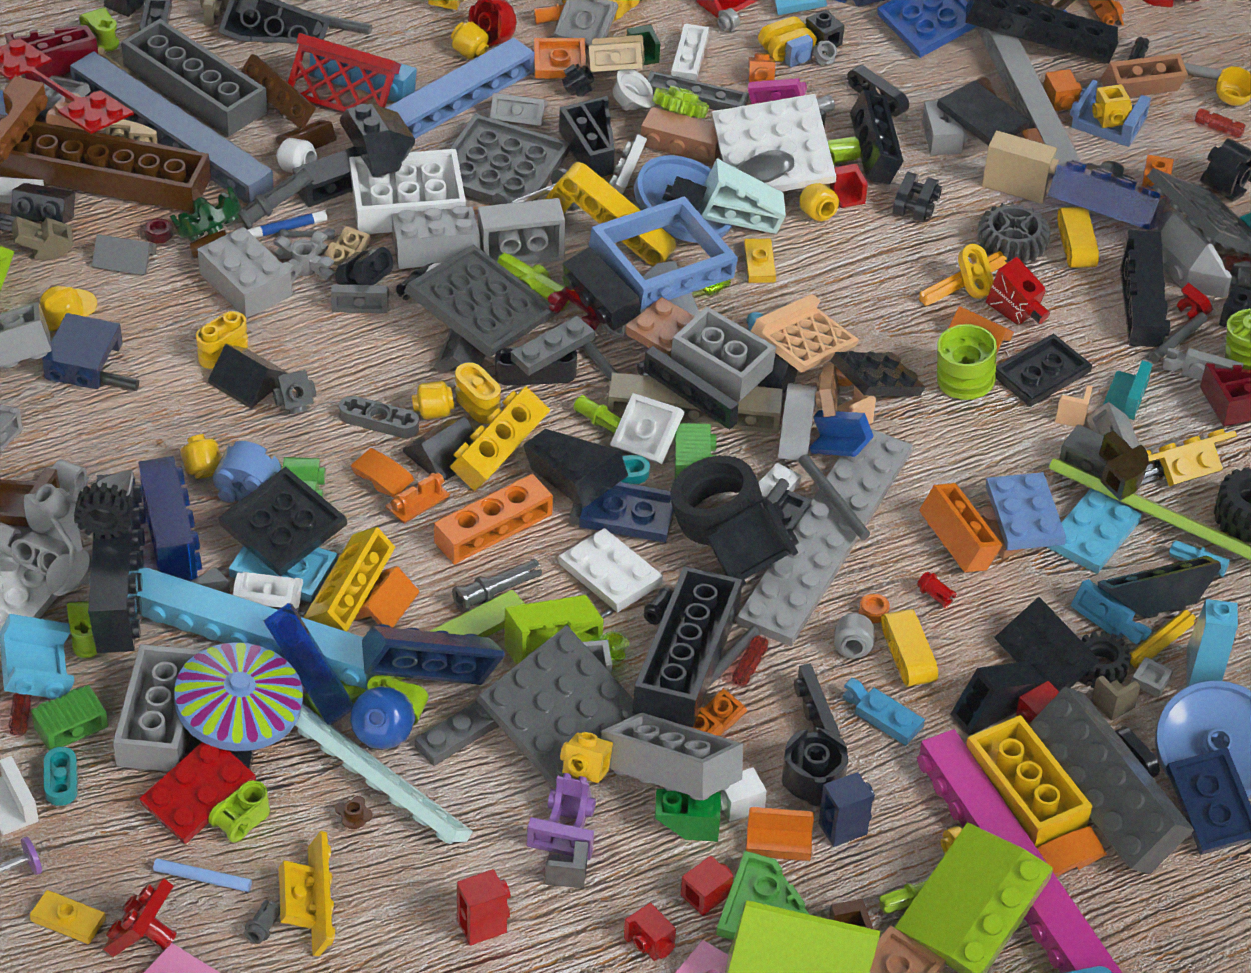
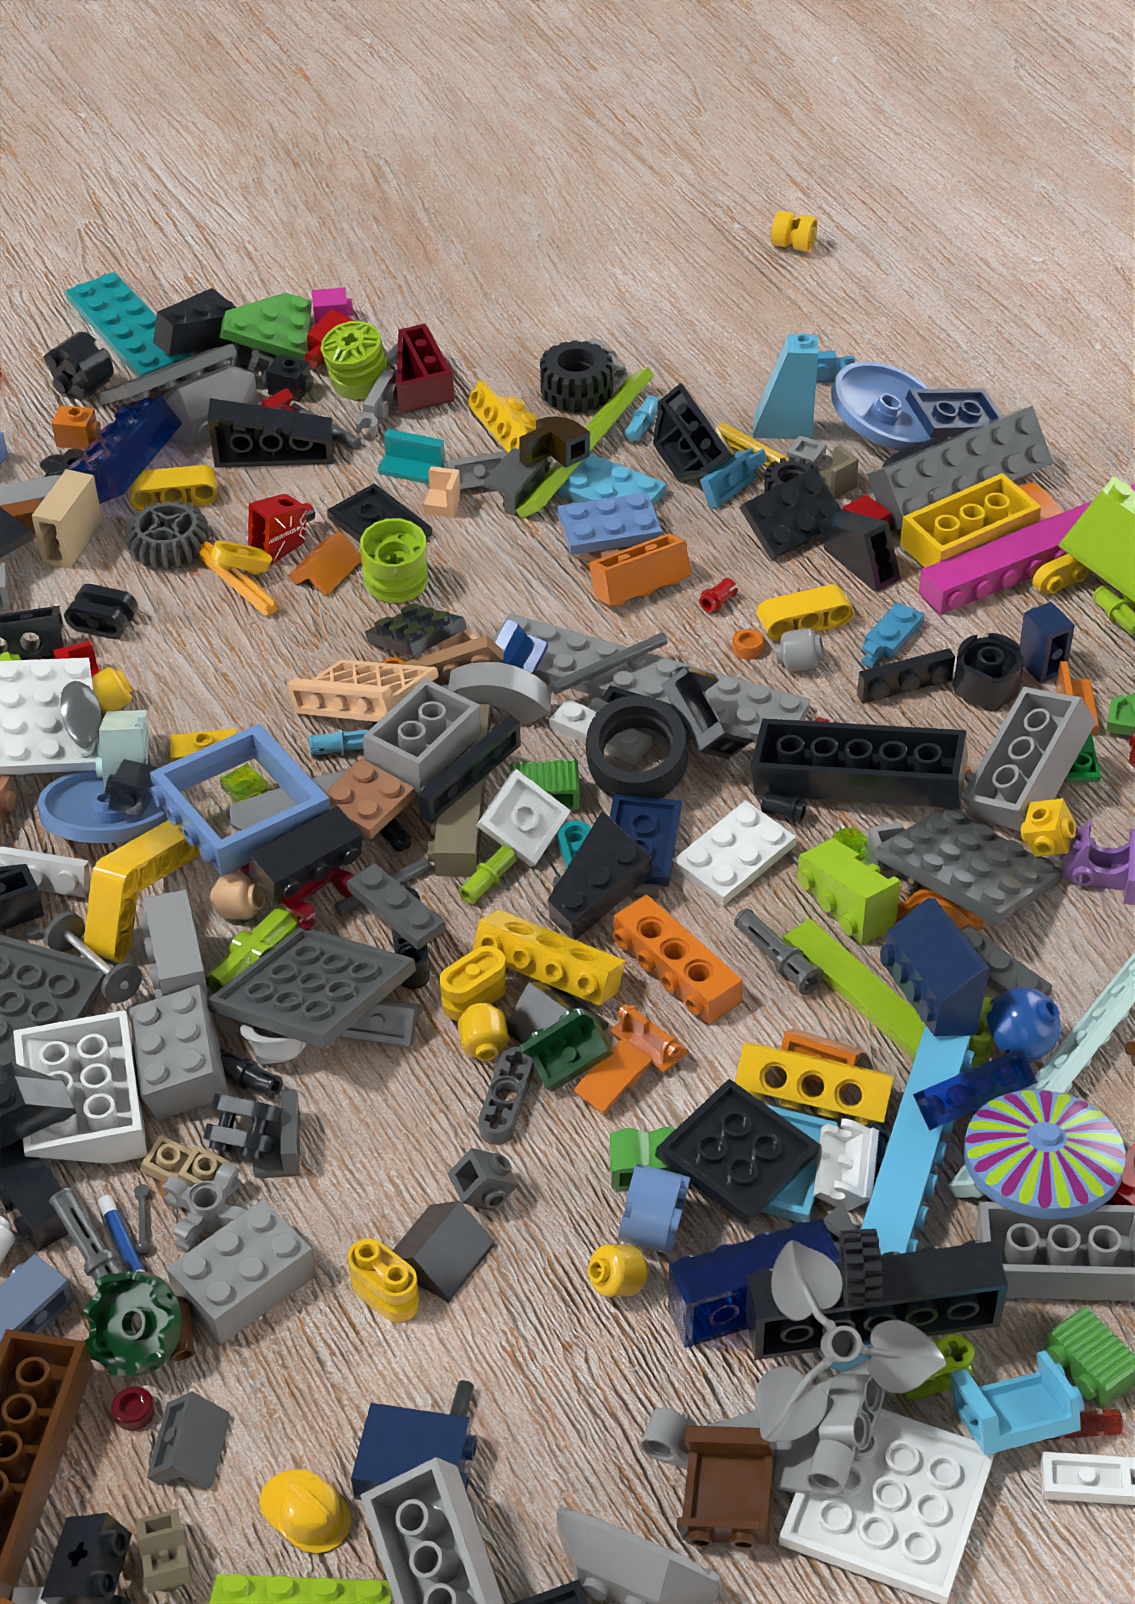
camera: 90 degrees left, 0 degrees up
(403, 439) = (567, 1048): none -> dark green bracket

